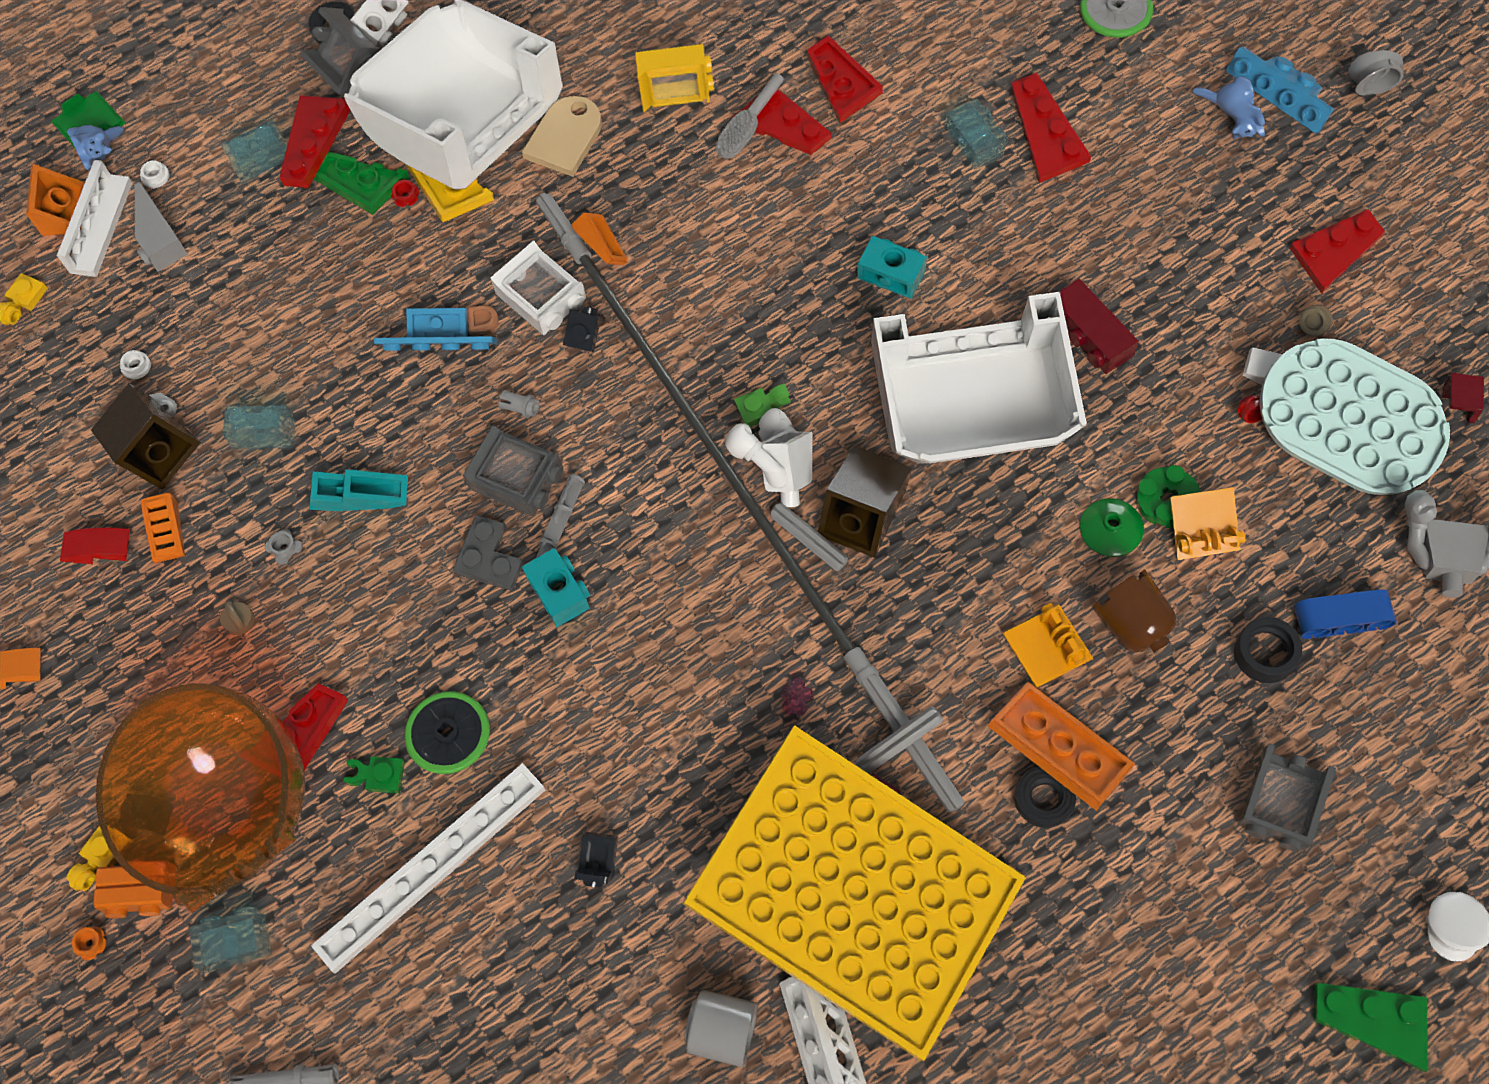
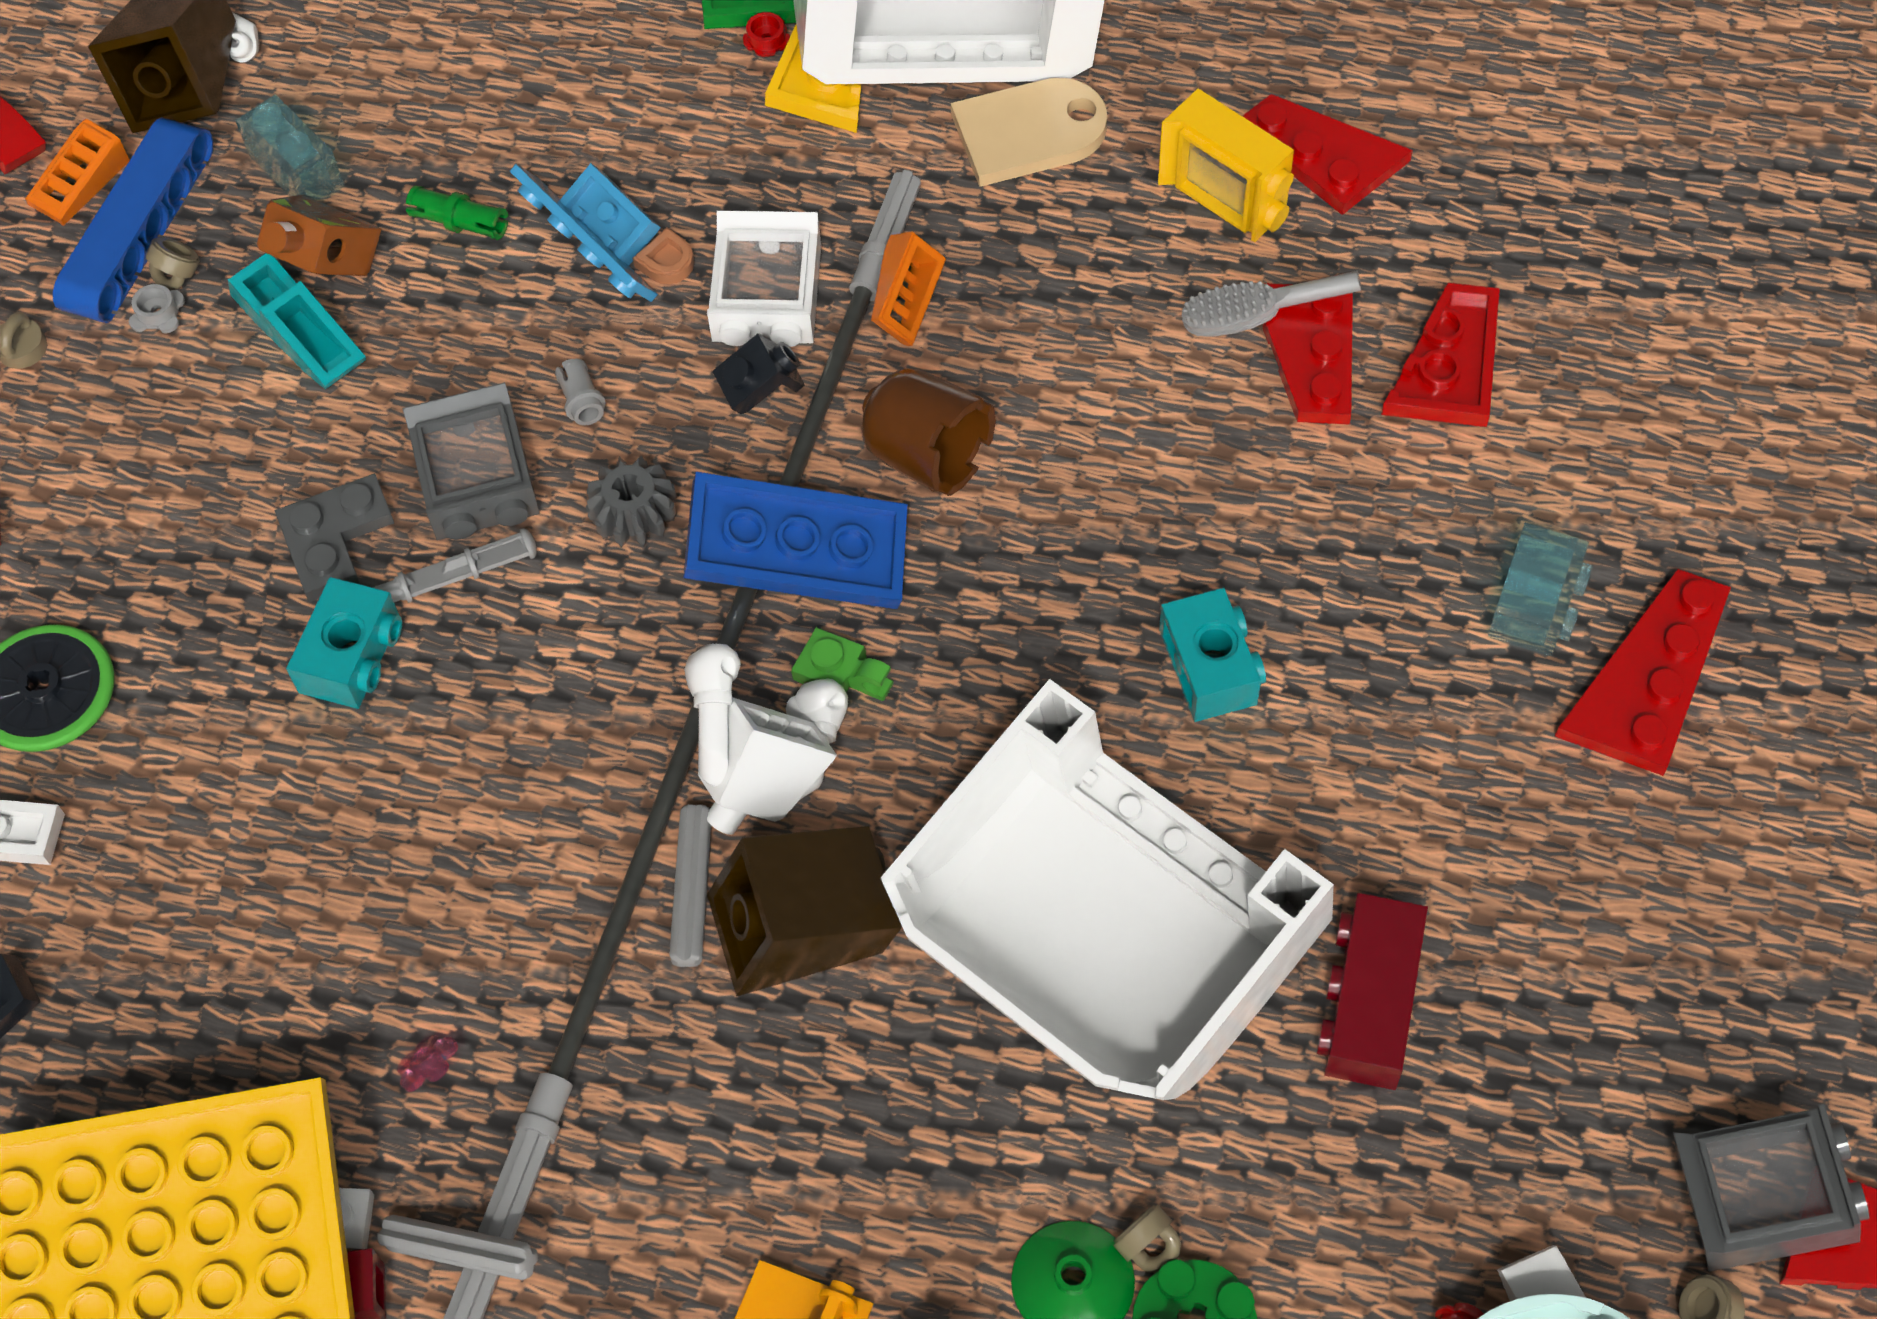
camera: 45 degrees right, 5 degrees down
(221, 520) = (131, 216): none -> blue beam
(264, 518) = (172, 258): none -> dark tan tile
(325, 446) = (303, 229): none -> dark orange torso
(366, 383) = (457, 212): none -> green pin
(588, 423) = (631, 501): none -> dark grey gear
(681, 284) = (927, 428): none -> reddish brown cylinder
(689, 372) = (796, 540): none -> blue plate
(711, 32) = (1329, 155): none -> red wing
(1118, 484) = (1143, 1232): none -> dark tan tile
(1291, 260) = (1771, 1188): none -> dark grey window

